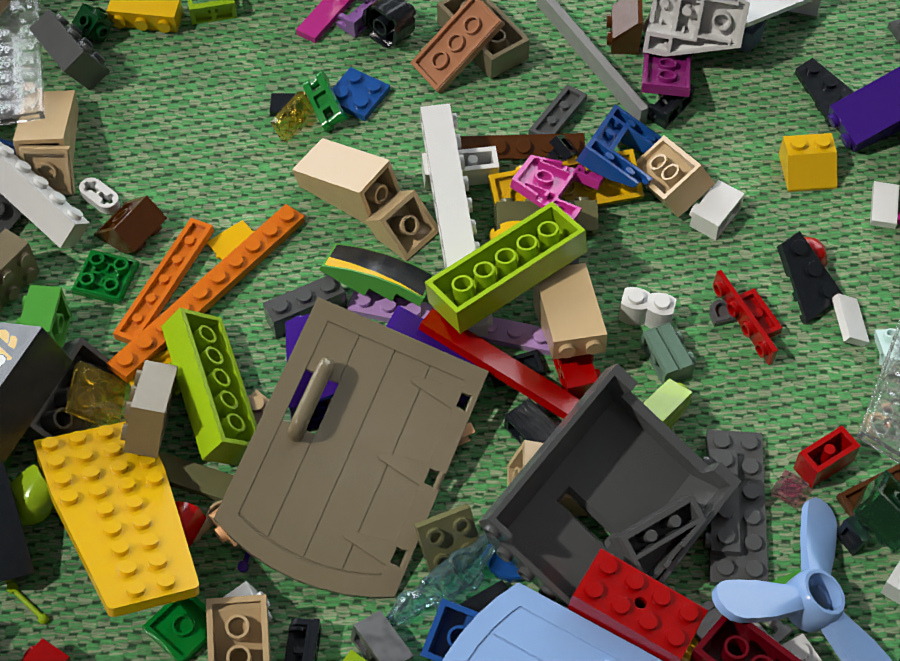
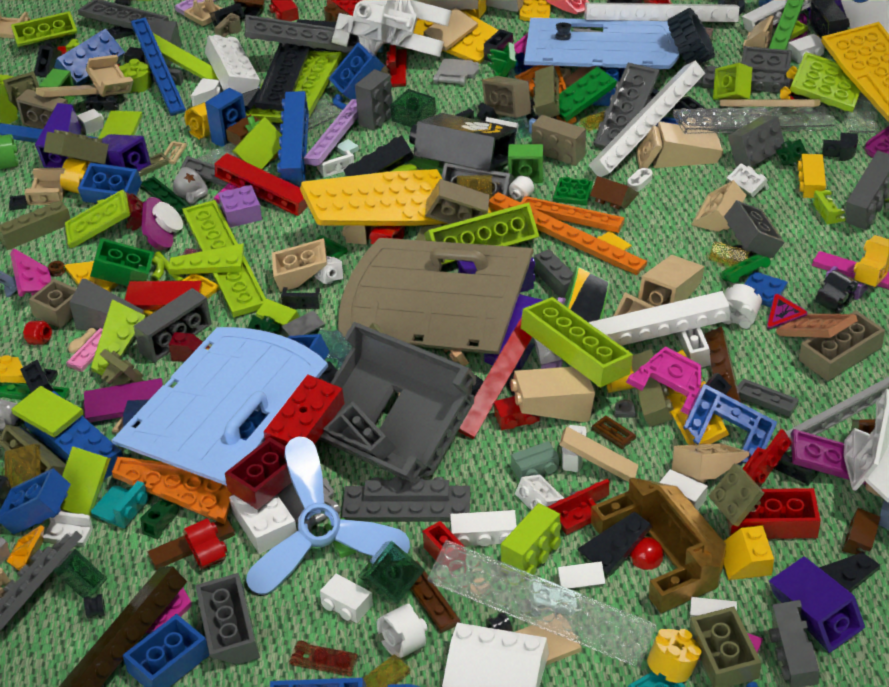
camera: 90 degrees right, 15 degrees down
(96, 333) = (521, 187): none -> white head
(137, 77) = (748, 180): none -> white bracket
(190, 114) = (717, 205): none -> tan slope
(259, 79) = (753, 229): none -> dark grey brick
(403, 113) = (743, 305): none -> white brick
(411, 76) = (784, 311): none -> piece
(629, 264) = (611, 433): none -> reddish brown tile
(669, 402) = (478, 453): lime slope -> none
(671, 279) = (598, 454): none -> tan tile
(685, 130) = (763, 461): none -> red bracket
(723, 354) = (536, 490): none -> white bracket
(754, 130) = (784, 514): none -> red brick
(766, 140) = (736, 495): none -> olive plate
(771, 64) = (861, 532): none -> reddish brown hinge
(785, 415) = (483, 527): none -> white brick
(789, 488) = (416, 534): clear pink tile -> none
(807, 205) = (679, 529): none -> pearl gold wedge
(819, 359) = (532, 539): none -> lime brick

